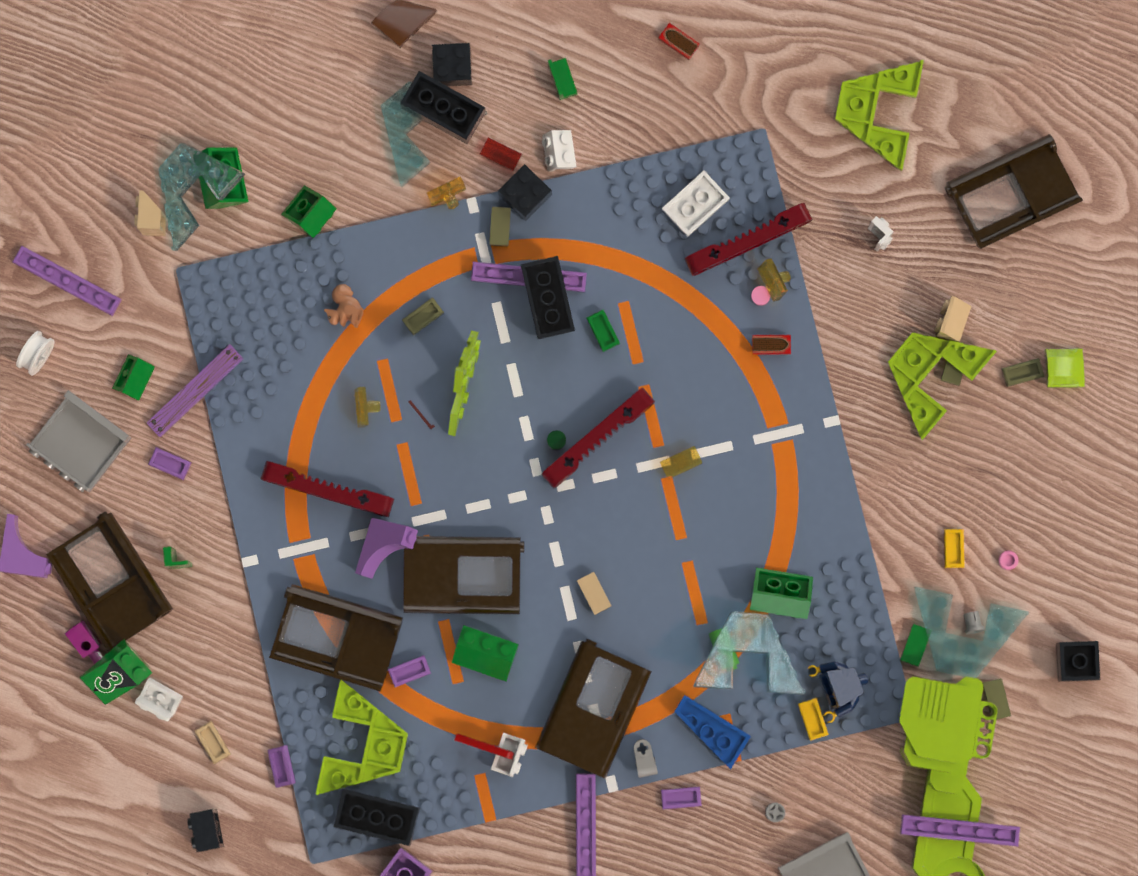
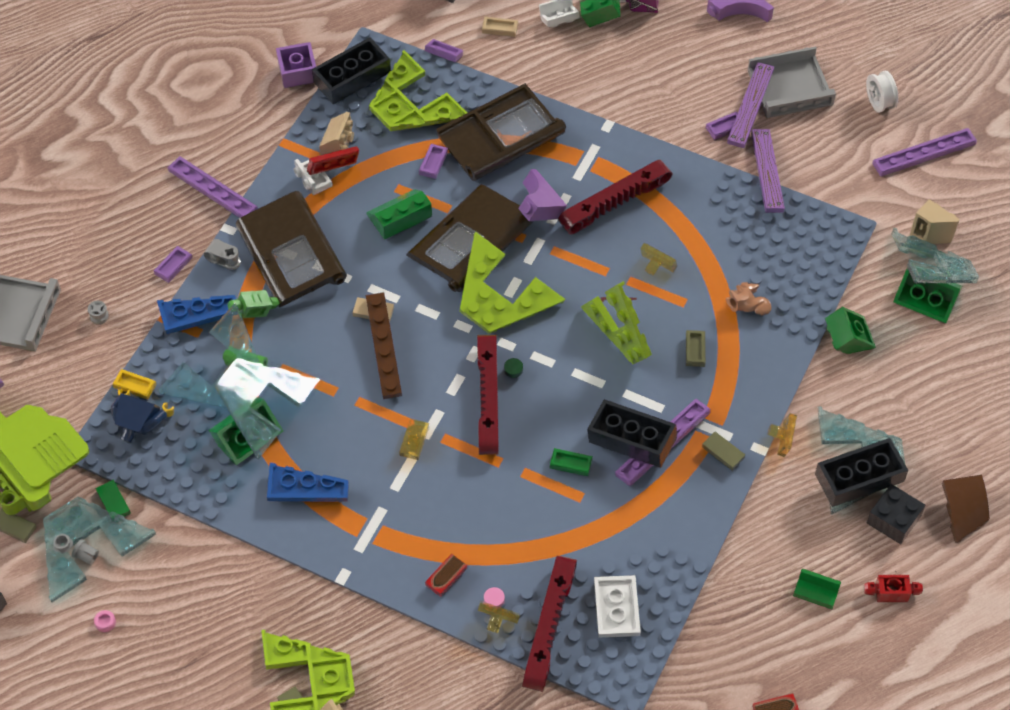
camera: 125 degrees right, 25 degrees down
(117, 585) = (670, 37): dark brown piece -> none
(133, 377) = (811, 143): green panel -> none
(133, 455) = (750, 105): none -> medium lavender tile
(170, 559) = (650, 76): green panel -> none
(458, 766) = (338, 134): none -> tan slope
(500, 154) = (786, 499): clear red tile -> none
(519, 501) = (487, 306): none -> lime wing
(525, 192) = (736, 484): black brick -> none
(526, 34) = (900, 582): none -> red piece
(559, 150) = (752, 542): white bracket -> none
(621, 555) = (383, 345): none -> reddish brown plate
(672, 686) = (254, 303): none -> bright green piece
(758, 615) = (242, 386): none -> clear light blue wing
(793, 514) = (295, 485): none -> blue wing
(954, 548) = (155, 587): yellow tile -> none
(984, 636) = (58, 540): none -> light grey plate

